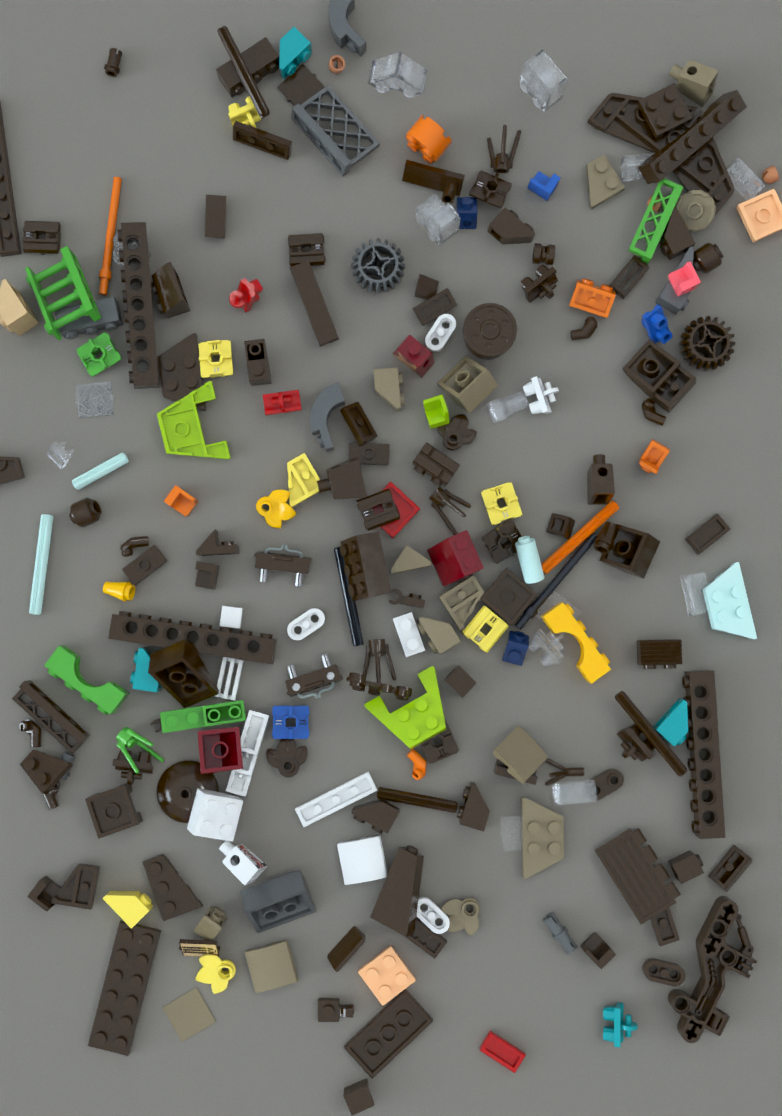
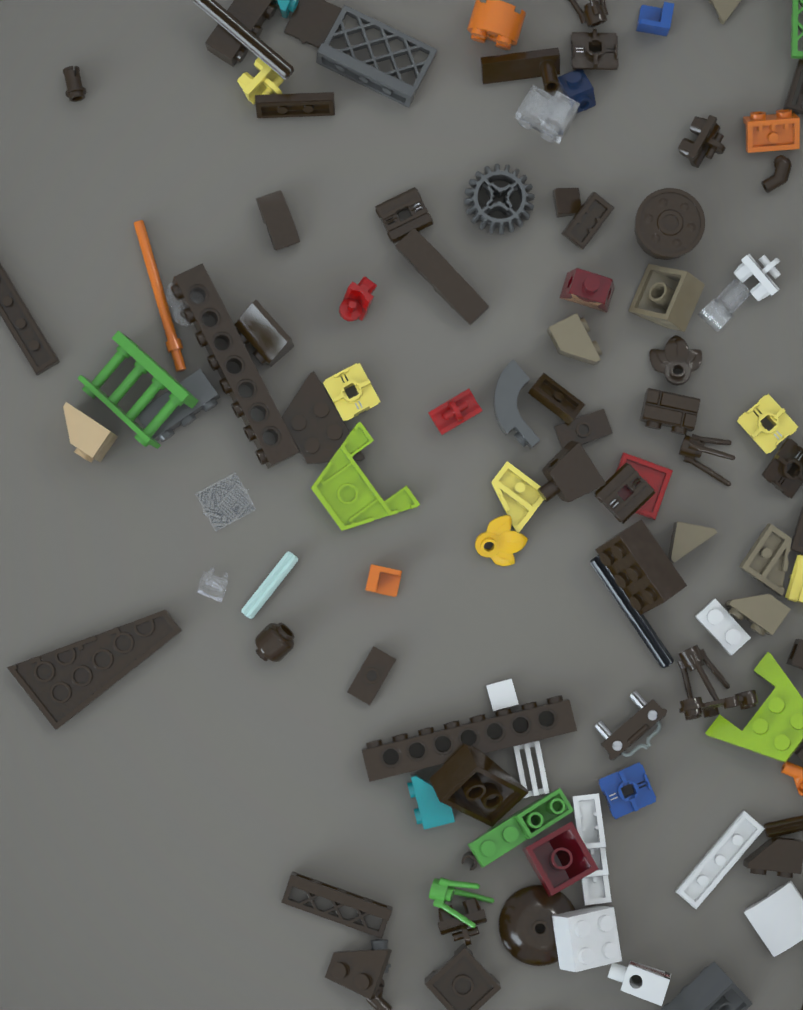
camera: 20 degrees left, 0 degrees up
(31, 239) = (73, 345): dark brown piece -> none
(33, 730) = (324, 930): dark brown arm -> none
(41, 564) = (246, 727): light aqua axle -> none
(65, 664) = (329, 836): bright green arch -> none
(88, 351) = (193, 445): bright green piece -> none
(120, 590) = (355, 718): yellow cone -> none
(132, 543) = (348, 654): dark brown arm -> none
(206, 575) = (451, 657): dark brown panel -> none
(211, 546) = (443, 621): dark brown slope -> none
(257, 362) = (405, 375): dark brown slope -> none
(282, 562) = (536, 604): dark brown piece -> none
(286, 754) = (637, 831): dark brown plate -> none
(306, 624) = (596, 666): white plate -> none
(413, 600) = (711, 584): dark brown plate -> none
(436, 411) = (644, 346): lime panel -> none
(439, 333) = (607, 250): white plate -> none
(455, 558) = (743, 513): dark red slope -> none
(509, 229) = (638, 90): dark brown slope -> none
(543, 254) = (691, 103): dark brown wheel -> none

